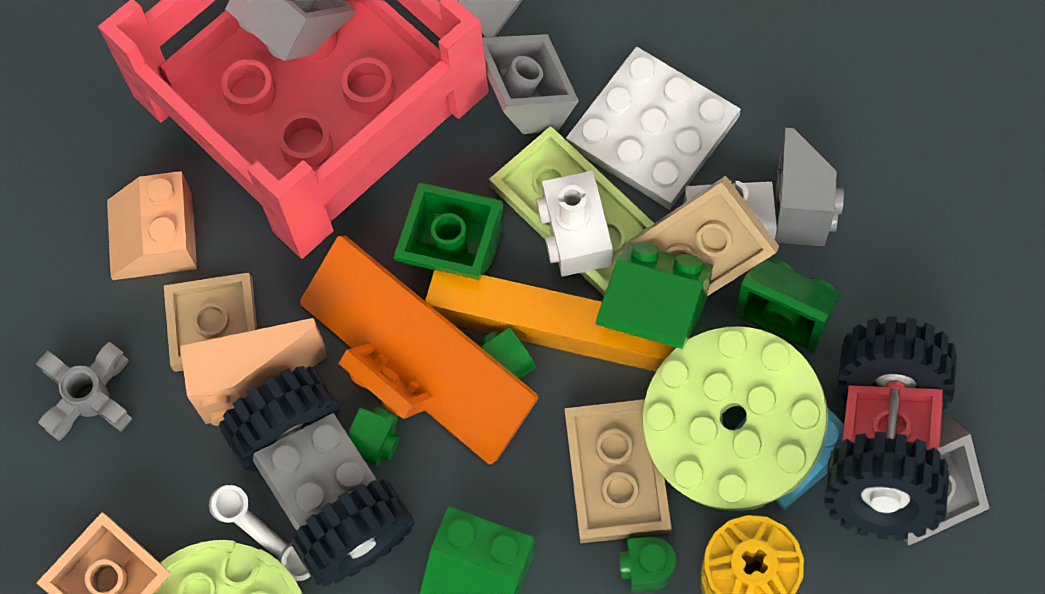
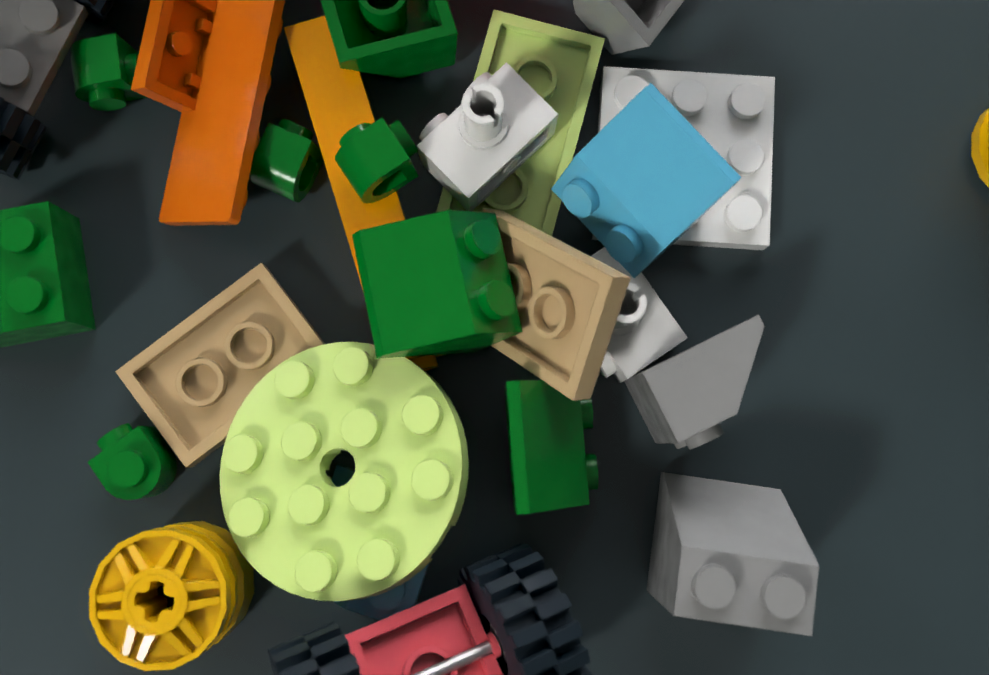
camera: 50 degrees right, 15 degrees up
(553, 288) = (377, 159): none -> green plate
(666, 146) = (644, 180): none -> medium azure slope
(917, 234) = (731, 556): none -> light grey slope

